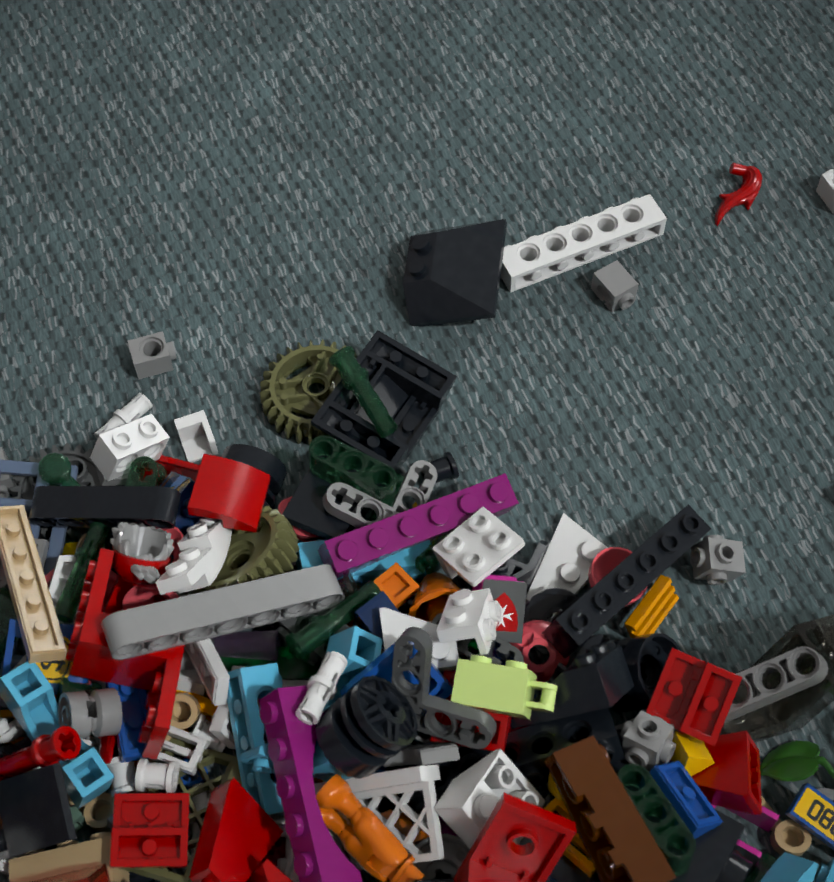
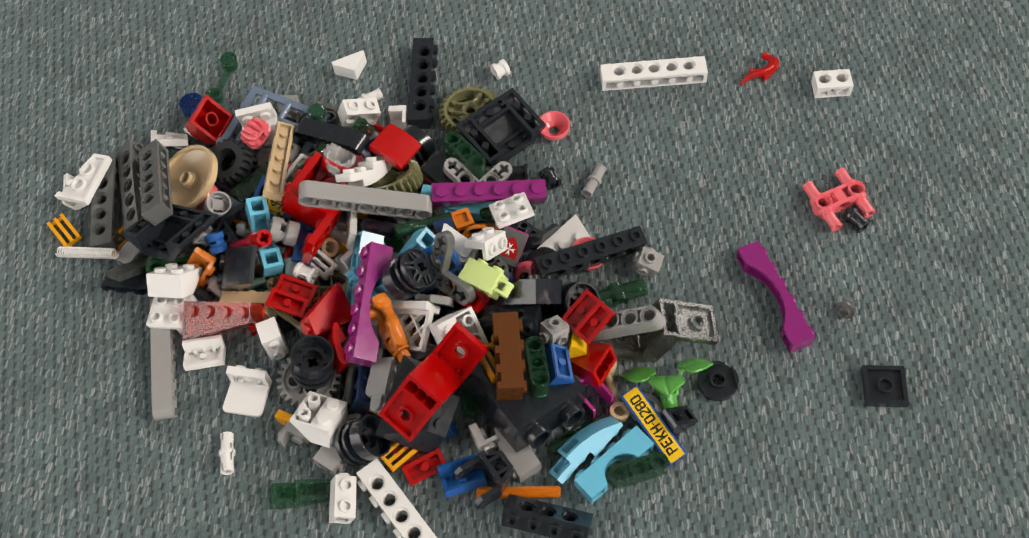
camera: 25 degrees right, 0 degrees up
(72, 368) = (351, 65): none -> white slope
(142, 351) = (392, 70): light grey brick -> none
(227, 427) = (421, 83): none -> black brick
(321, 688) = (394, 249): white pin -> none
(333, 302) = (500, 69): none -> white wheel
(356, 379) = (487, 108): clear green pin -> none
(454, 273) = (572, 70): black slope -> none
(470, 363) = (557, 120): none -> coral piece
(494, 462) = (550, 178): none -> black bush
(566, 447) = (593, 180): none -> light grey pin
(615, 286) = (661, 102): light grey brick -> none
(652, 608) = (601, 279): light orange tile -> none
(701, 625) = (621, 293): none -> clear green piece

